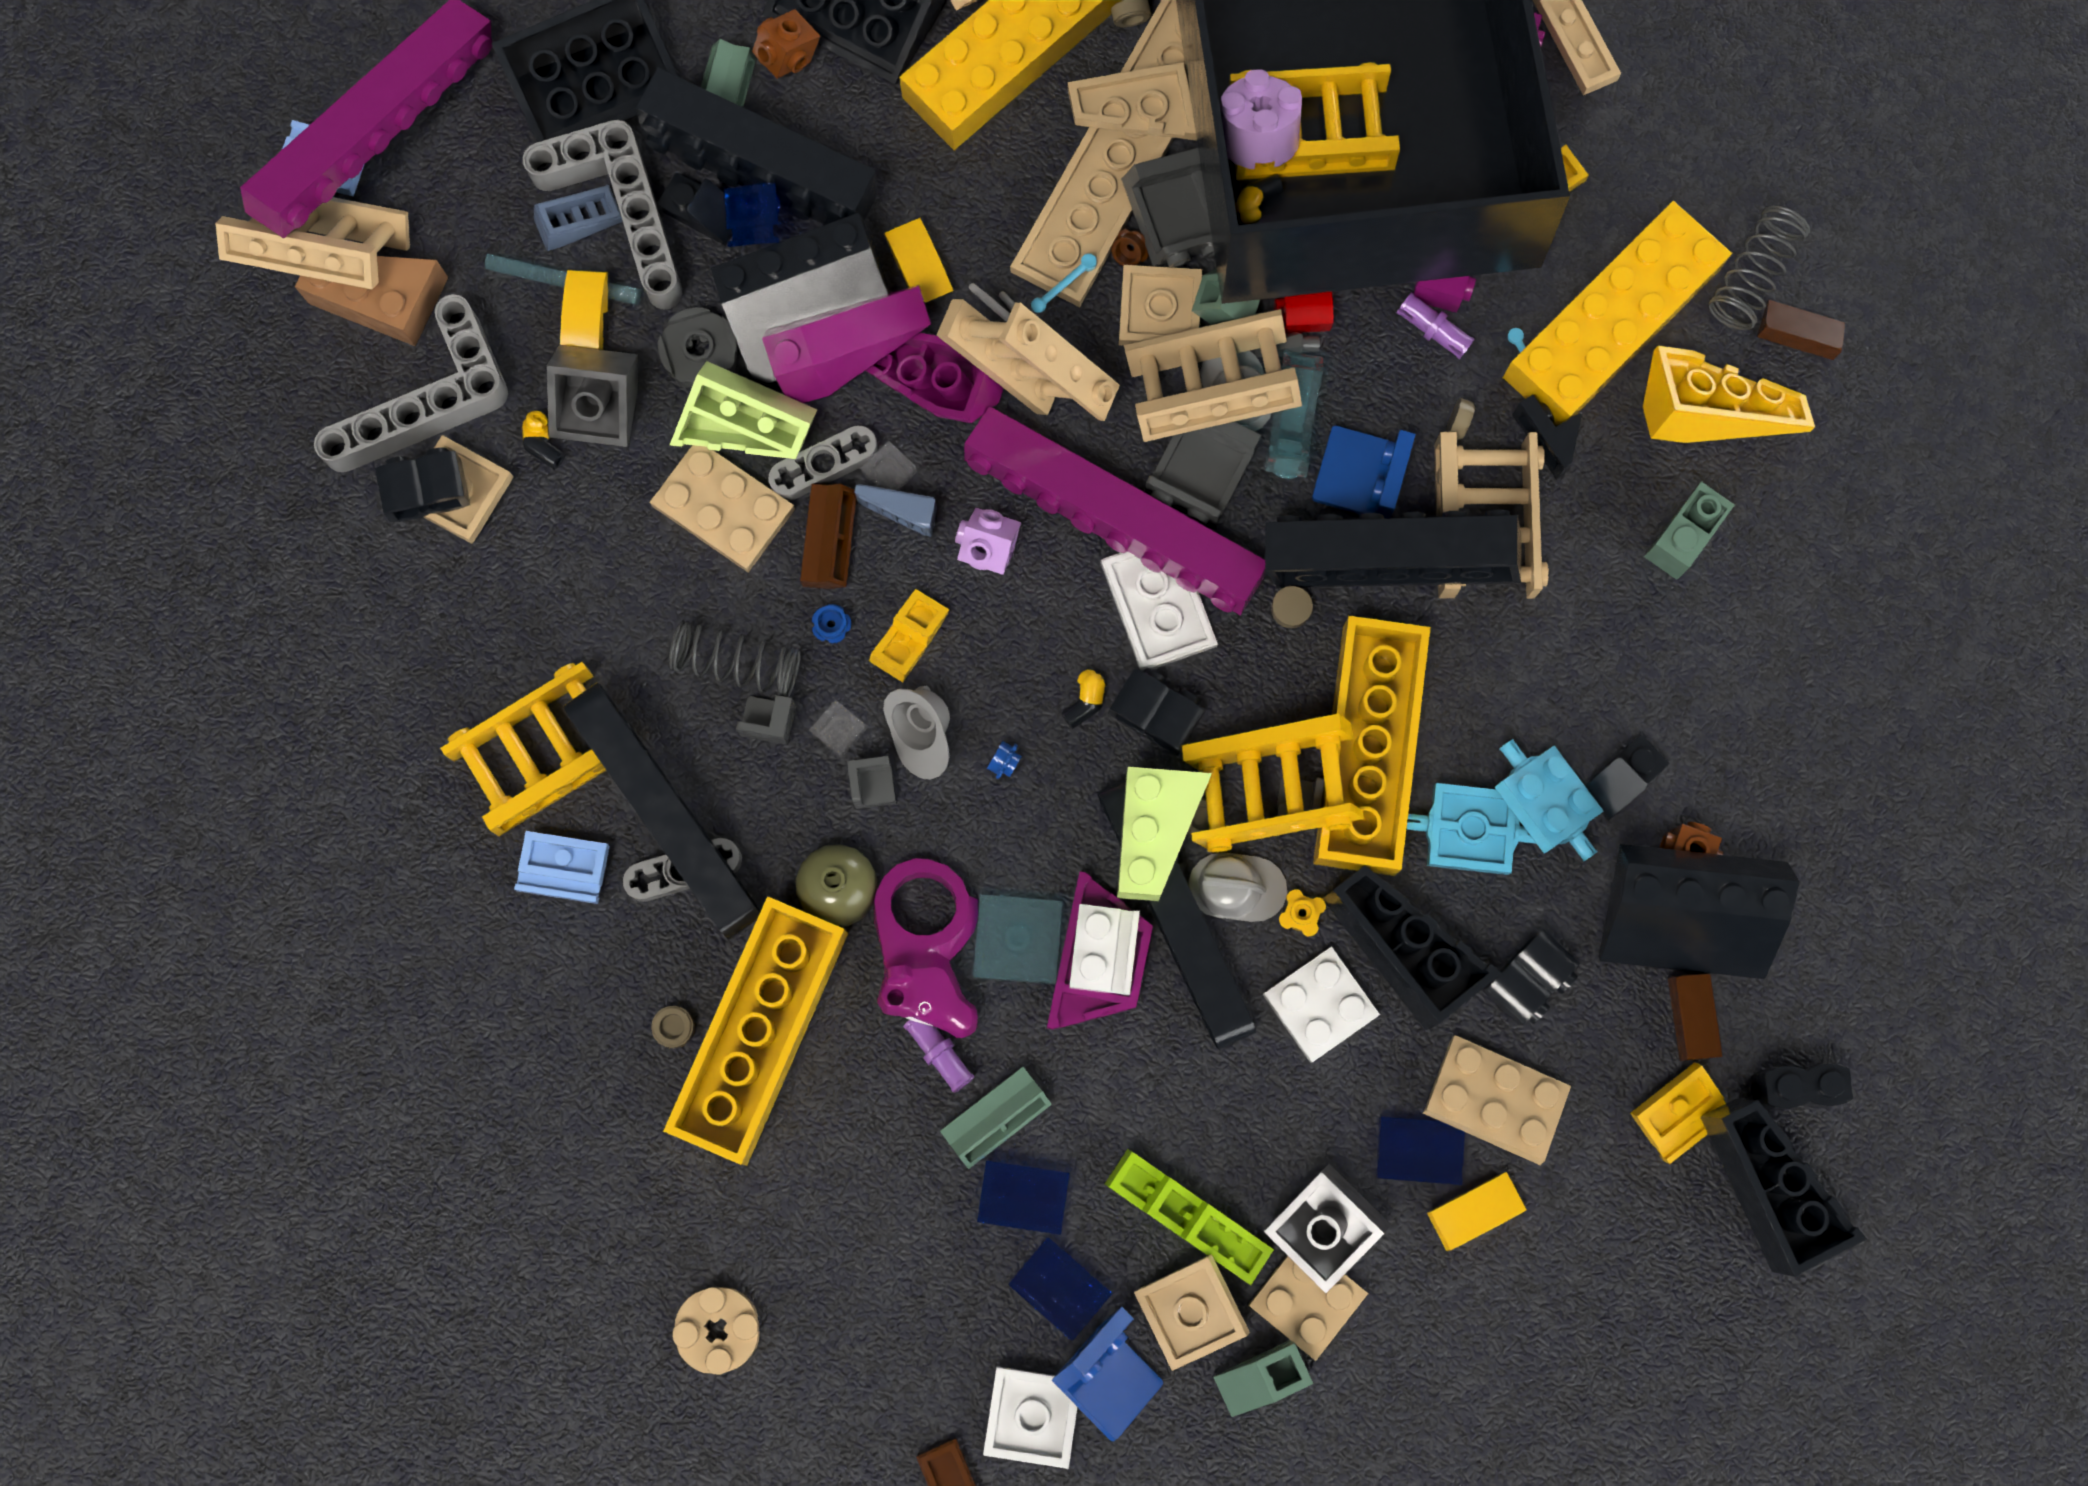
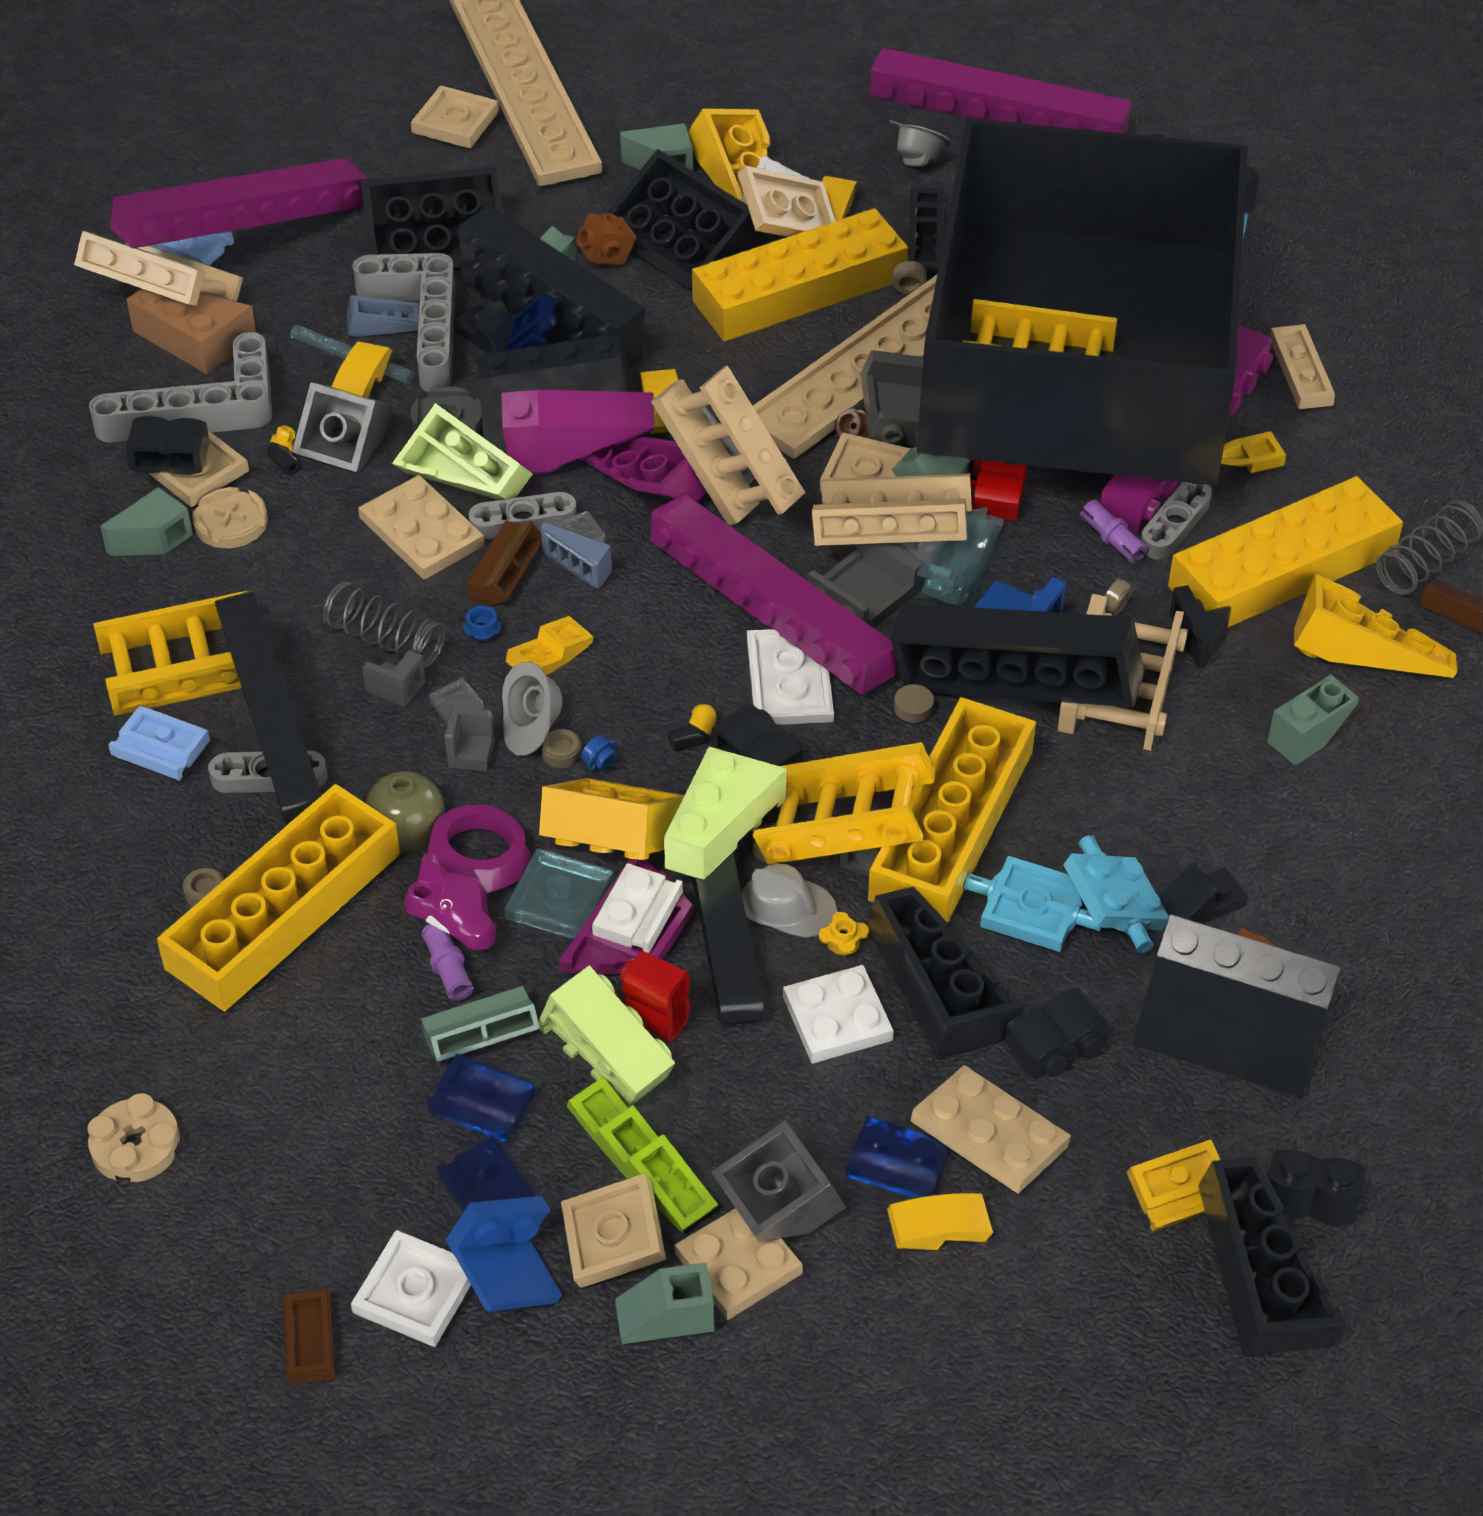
camera: 15 degrees right, 30 degrees down
(441, 590) = (148, 526): none -> sand green slope
(518, 546) = (229, 518): none -> tan tile
(964, 759) = (561, 748): none -> dark tan tile
(987, 540) = (647, 589): lavender brick -> none
(1046, 846) = (607, 816): none -> yellow slope
(1088, 263) = (810, 423): medium azure hinge -> none
(1121, 1106) = (606, 1035): none -> yellowish green wedge
(1136, 102) = (883, 323): tan wing -> none
(1154, 1053) = (657, 994): none -> red brick
(1261, 119) = (986, 315): lavender brick -> none
(1494, 316) = (1176, 532): none -> light grey beam
(1695, 1017) = (1219, 1108): reddish brown slope -> none

